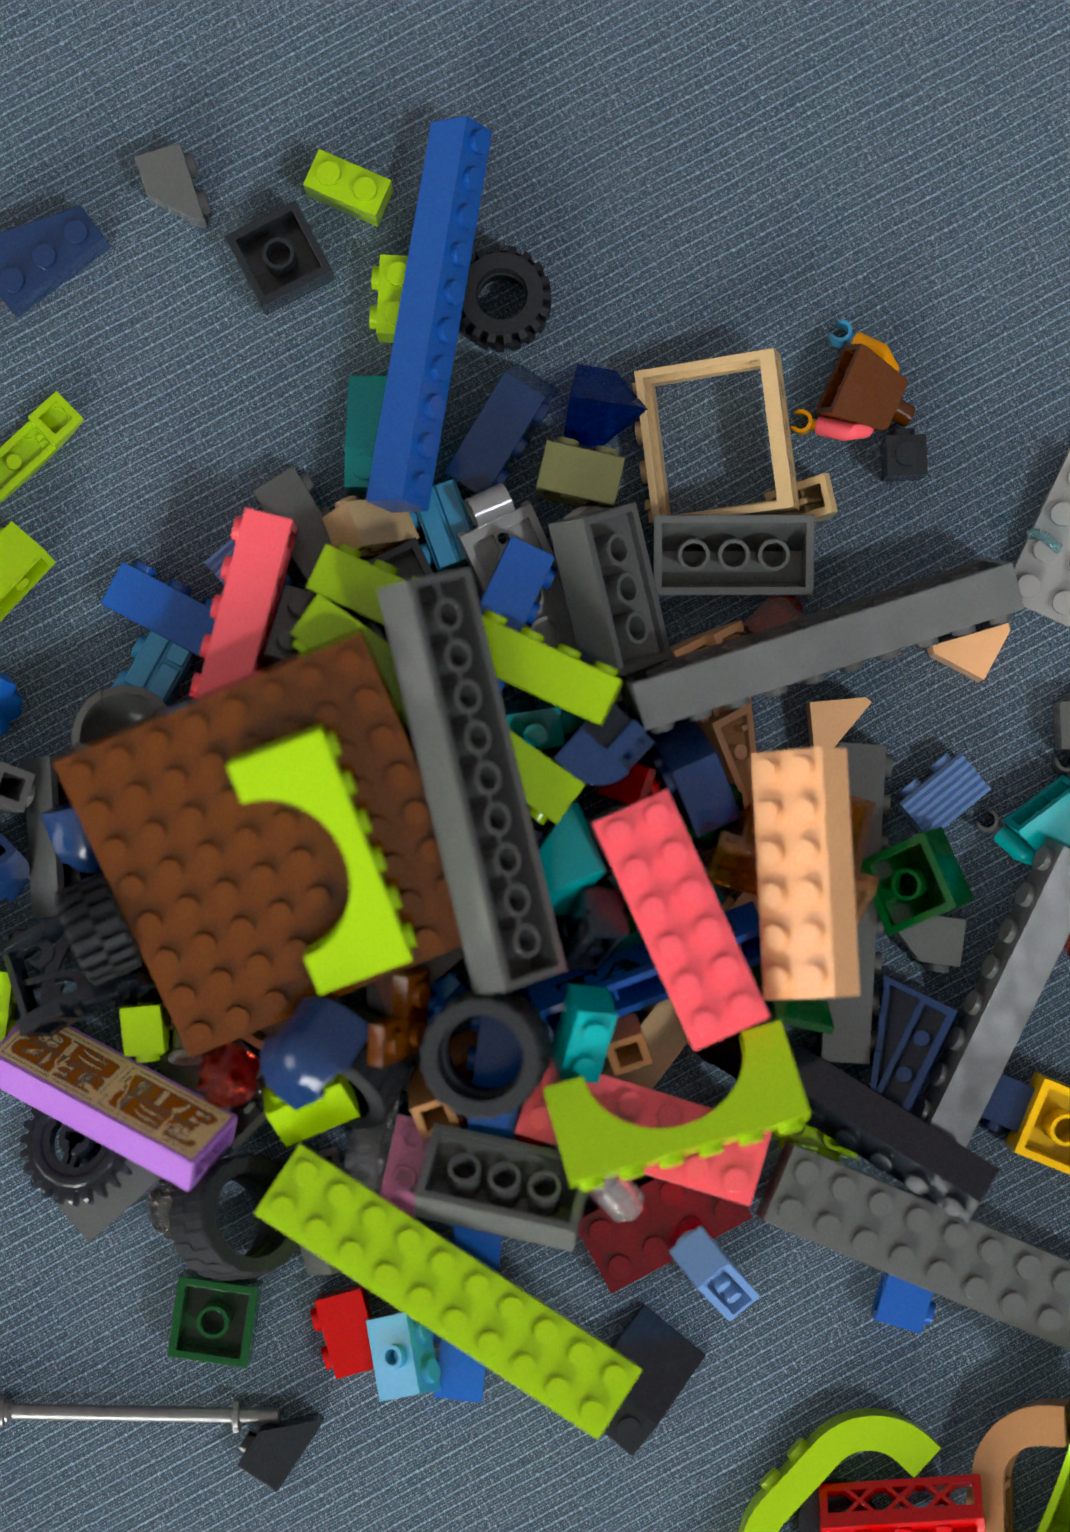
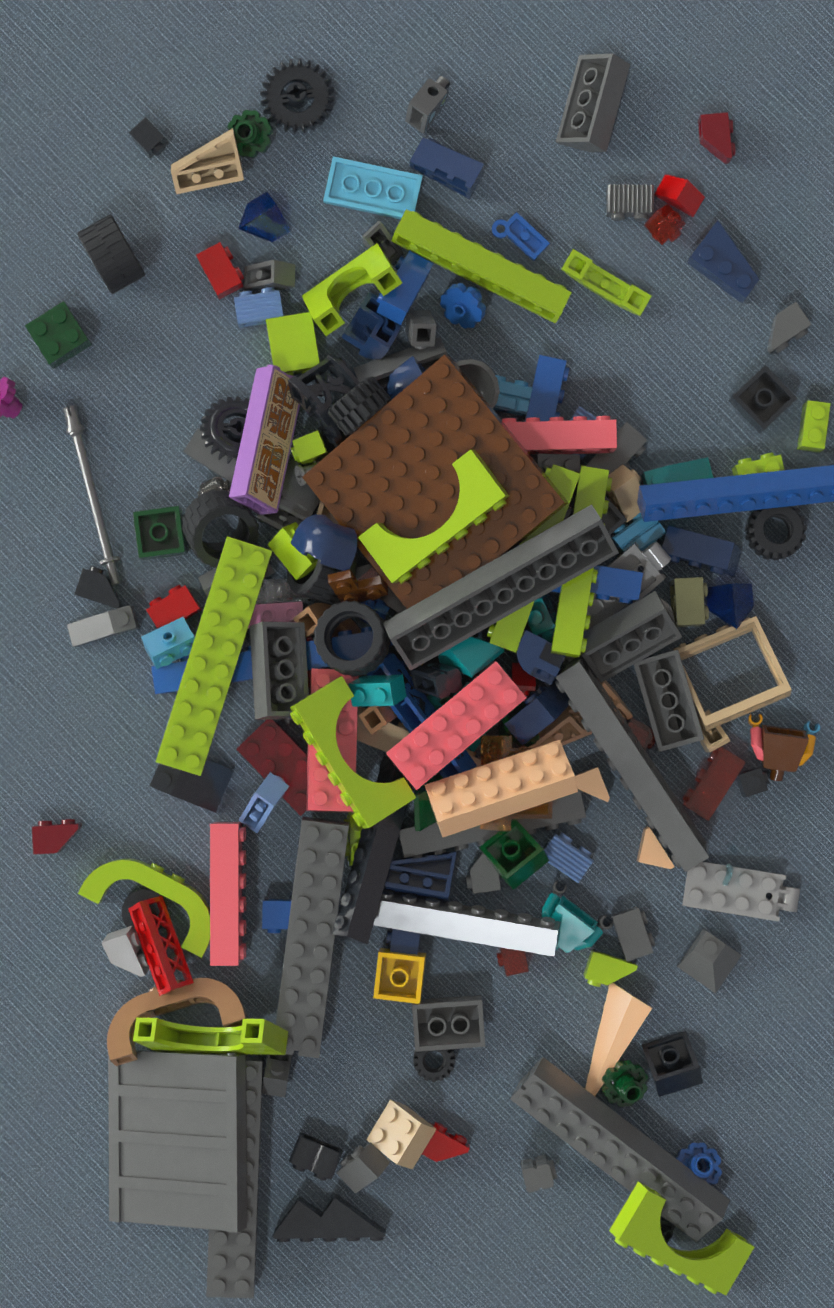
camera: 75 degrees right, 0 degrees up
(228, 1076) = (297, 501): clear red brick -> none
(343, 1455) = (103, 626): none -> slope
(619, 1199) = (291, 736): clear brick -> none
(847, 1376) = (226, 894): none -> coral brick
(887, 521) = (713, 783): none -> clear red brick

